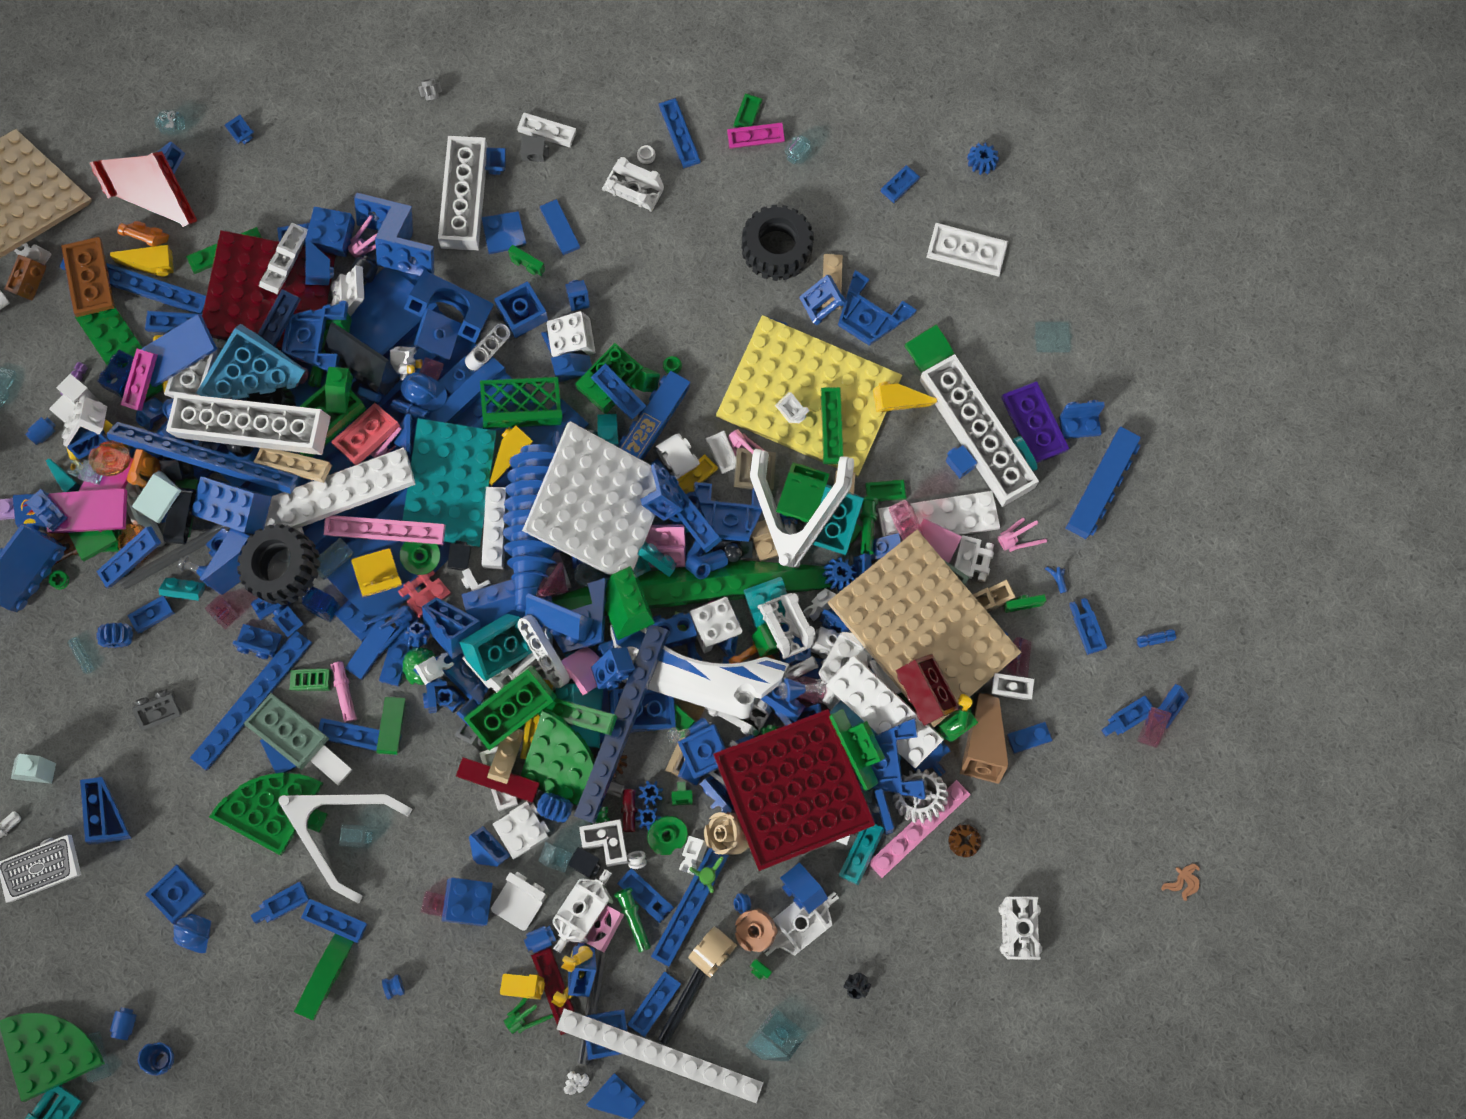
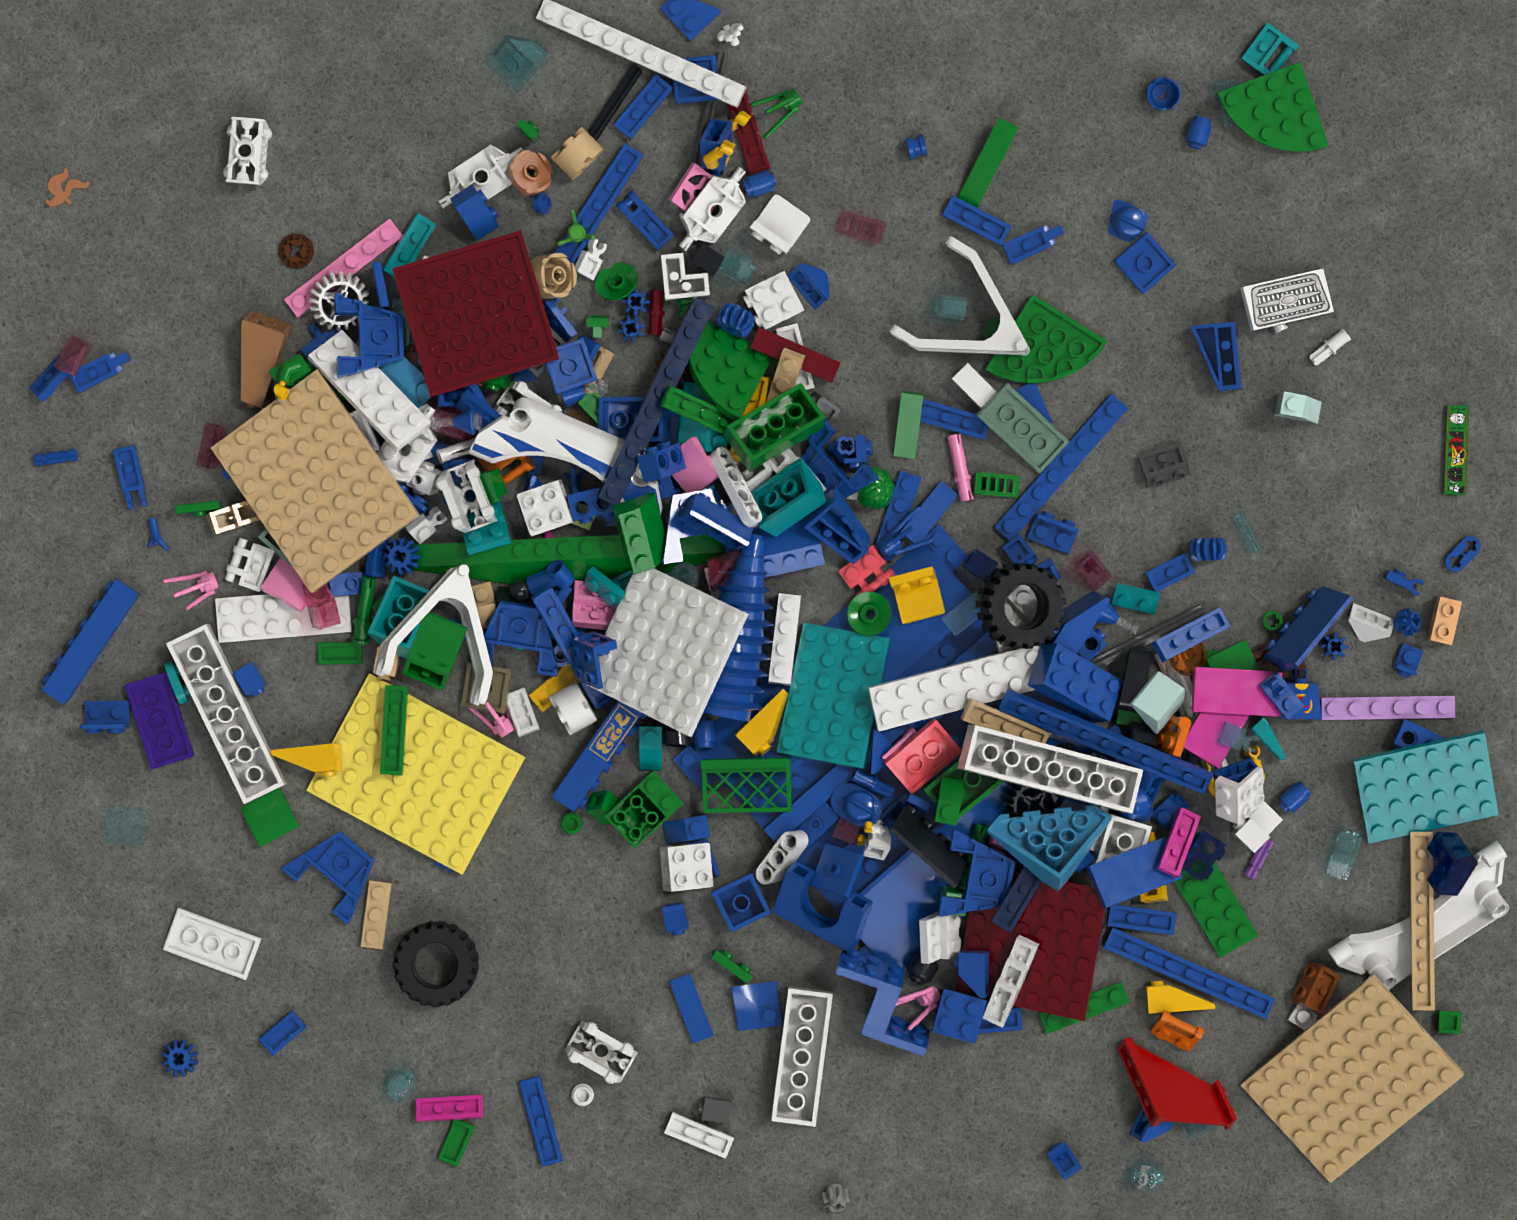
camera: 175 degrees left, 15 degrees up
(87, 276) = (1240, 979): dark orange plate -> none
(109, 458) = (1209, 747): clear orange tile -> none
(384, 529) = (905, 641): bright pink plate -> none
(417, 634) = (876, 522): blue gear -> none
(432, 668) = (858, 477): white plate -> none
(459, 556) = (826, 611): black brick -> none
(467, 902) = (834, 227): blue brick -> none
(470, 582) = (815, 580): white bracket -> none
(495, 160) = (762, 1097): blue bracket -> none
(522, 986) = (780, 136): yellow bracket -> none
(618, 391) = (634, 785): blue plate -> none
(630, 910) = (661, 204): green pin -> none
(636, 859) = (651, 258): white bush -> none
(792, 409) = (437, 751): white bracket -> none
(818, 295) = (393, 894): plate -> none
(857, 985) = (427, 107): black gear -> none
(860, 747) = (400, 351): green bracket -> none
(927, 689) = (320, 407): dark red slope -> none
(1012, 686) = (224, 411): white slope -> none
(1029, 737) = (211, 357): blue plate -> none

